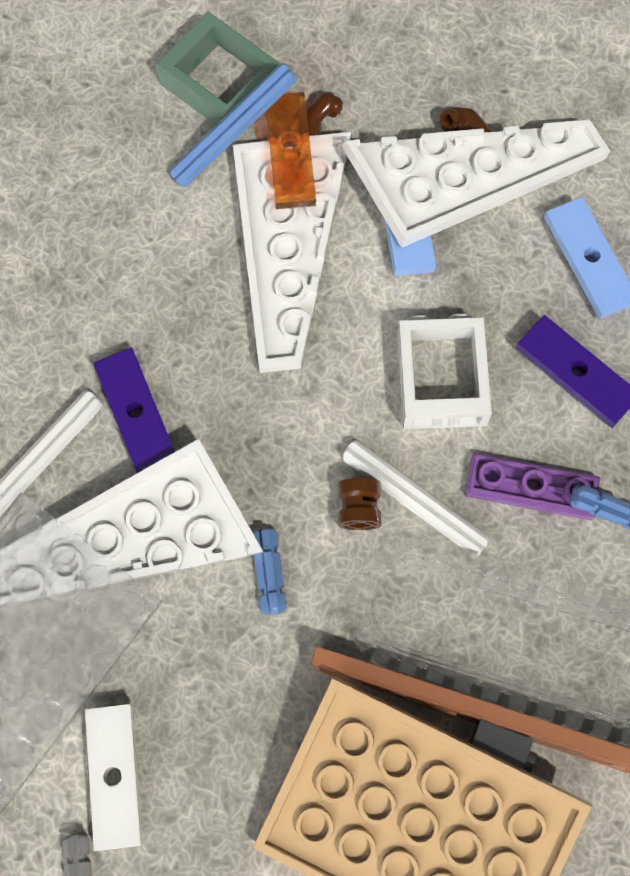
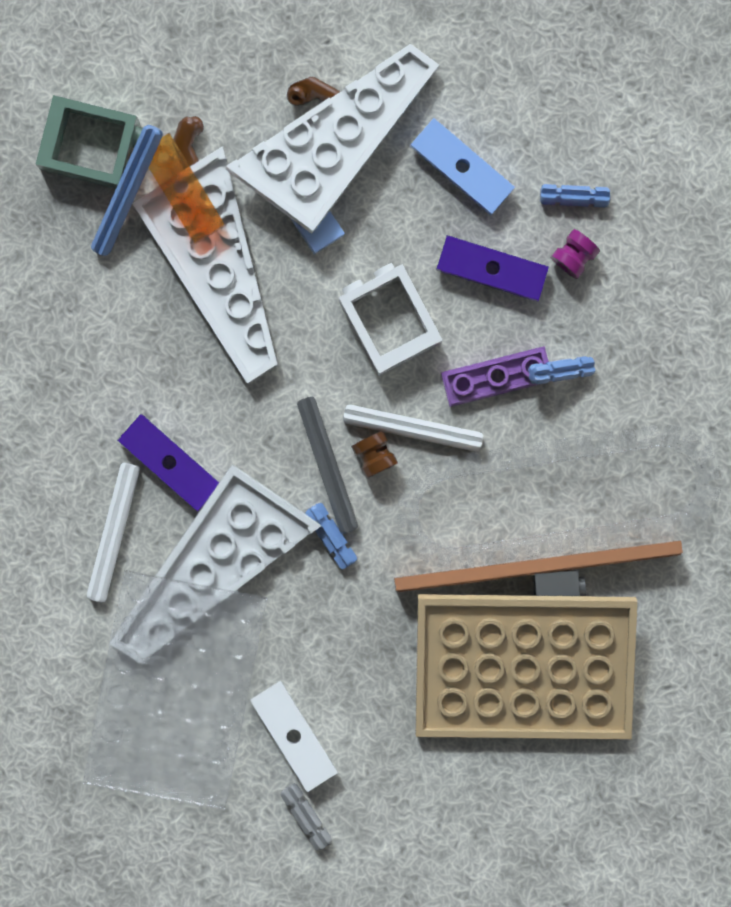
camera: 30 degrees left, 15 degrees up
(302, 495) = (327, 465): none -> dark grey axle

